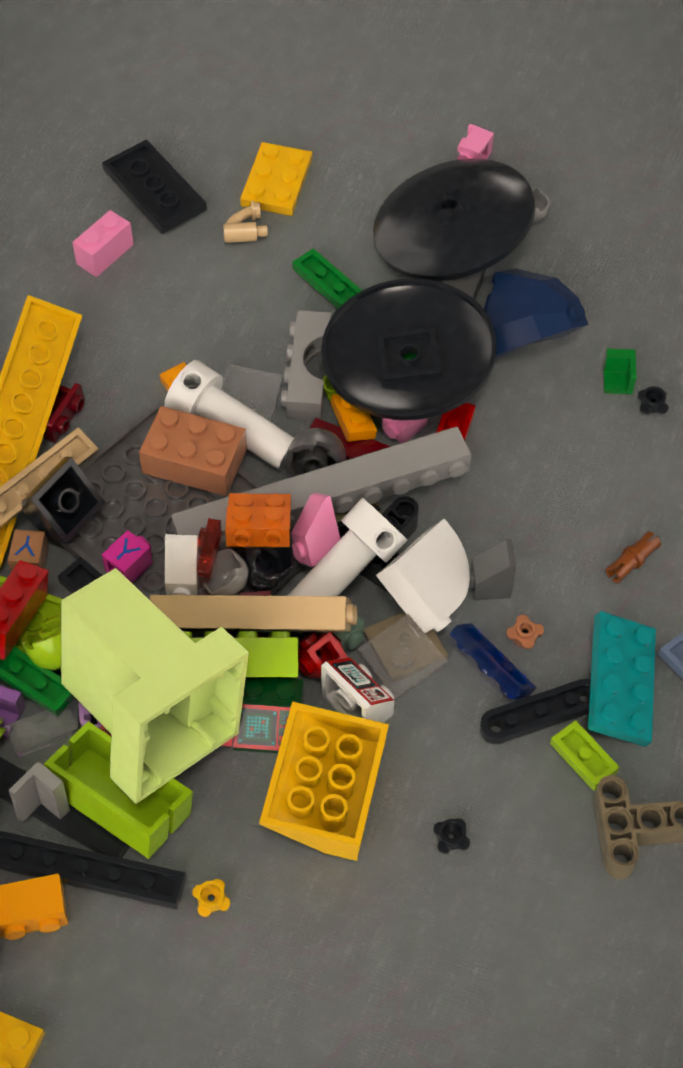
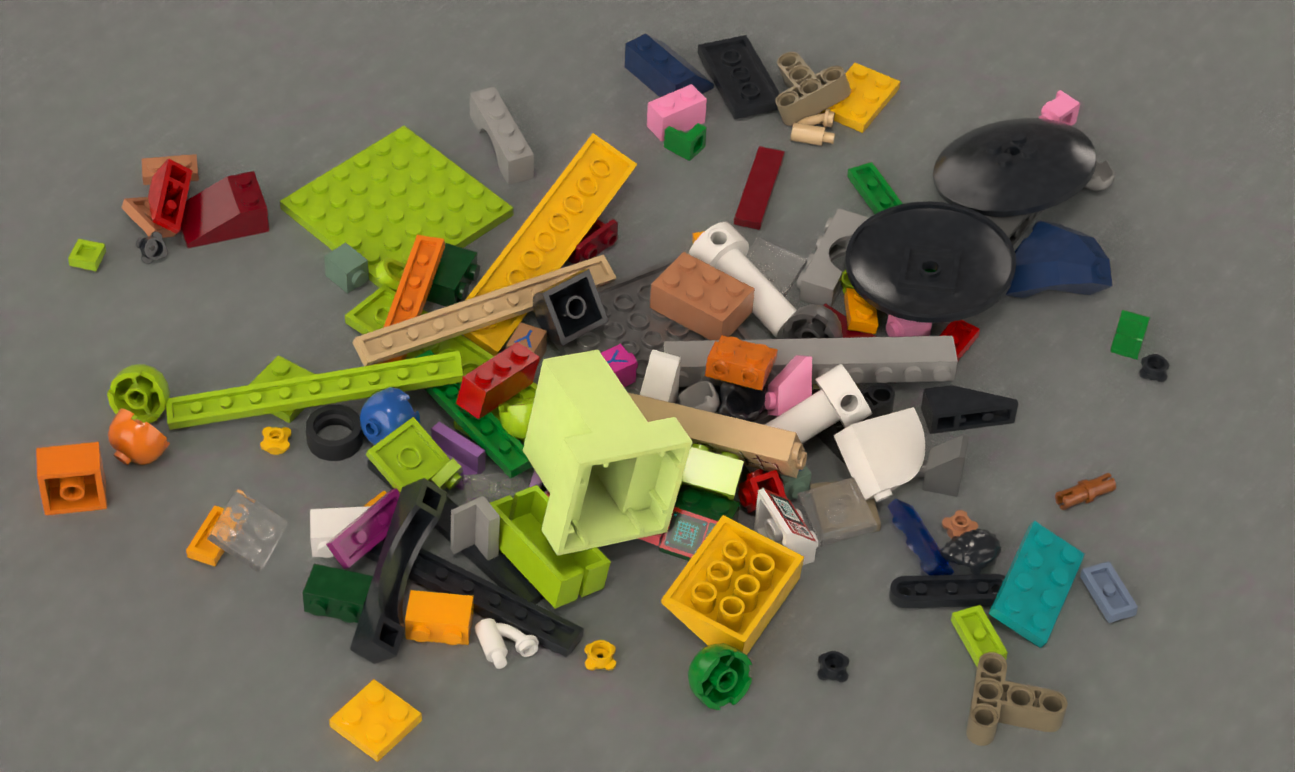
camera: 15 degrees right, 10 degrees down
(74, 196) = (661, 67): none -> dark blue slope
(96, 921) = (492, 643): none -> white plant
(123, 274) = (685, 144): none -> green panel
(209, 540) = (691, 369): clear red plate -> none
(210, 304) = (759, 188): none -> dark red tile
(228, 187) = (808, 91): none -> dark tan beam
(342, 887) = (719, 675): none -> green cylinder
(484, 500) = (962, 408): none -> black slope
(548, 660) = (972, 549): none -> black hair

